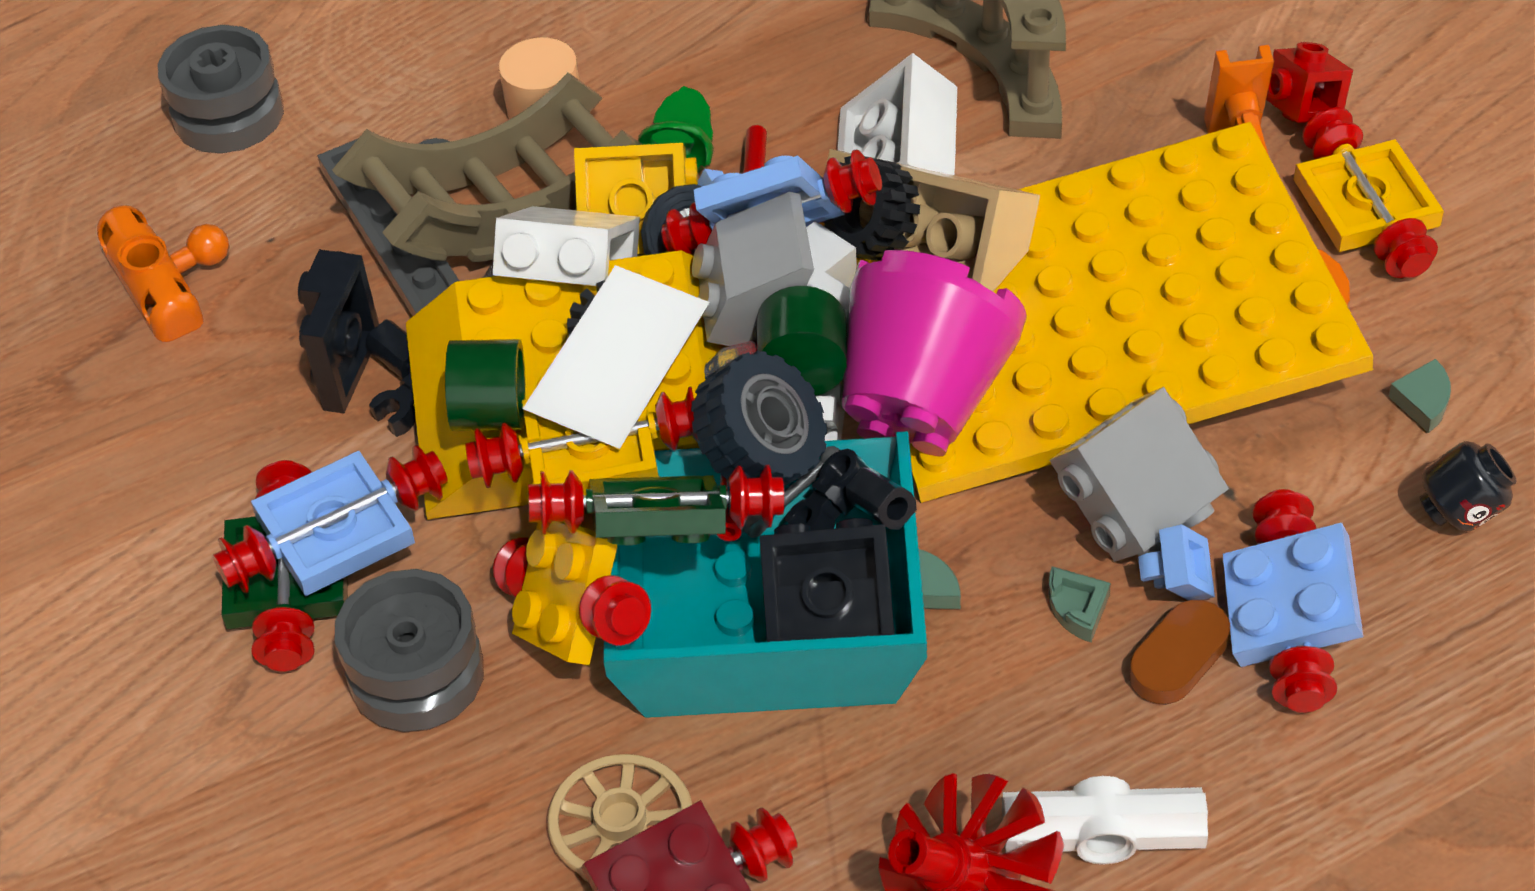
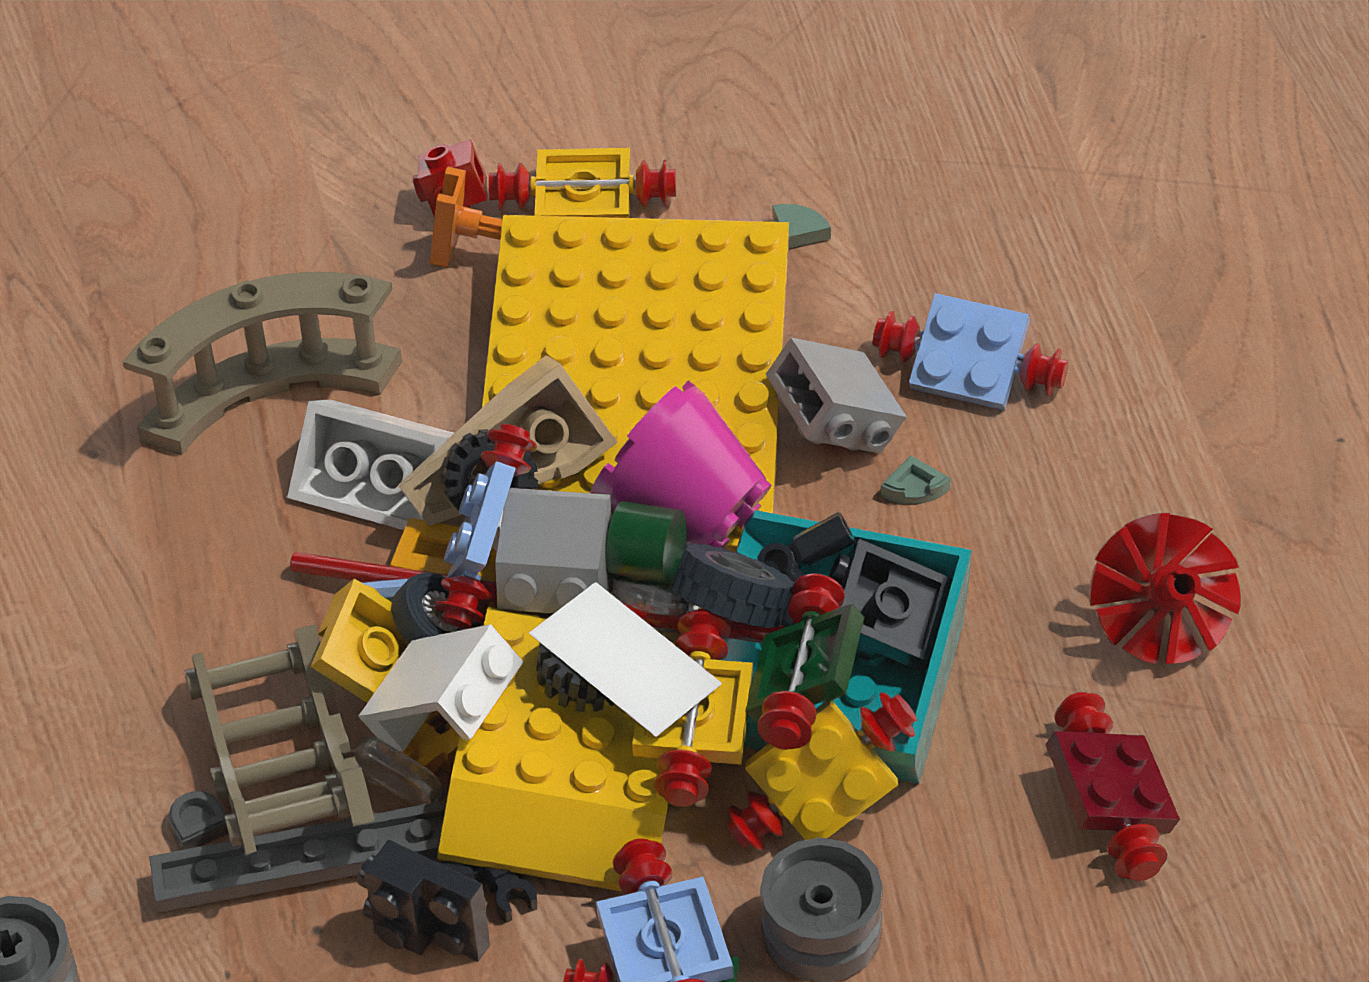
camera: 75 degrees left, 0 degrees up
(485, 384) = (615, 758): dark green piece -> none
(532, 70) = (152, 703): light nougat piece -> none
(616, 812) = (1016, 816): tan wheel -> none
(686, 120) = (273, 610): green piece -> none
(1111, 821) = (1130, 494): white piece -> none
(1179, 651) = (985, 436): dark orange tile -> none
(1181, 564) = (919, 404): light blue tile -> none
(1467, 486) = (912, 224): black head -> none

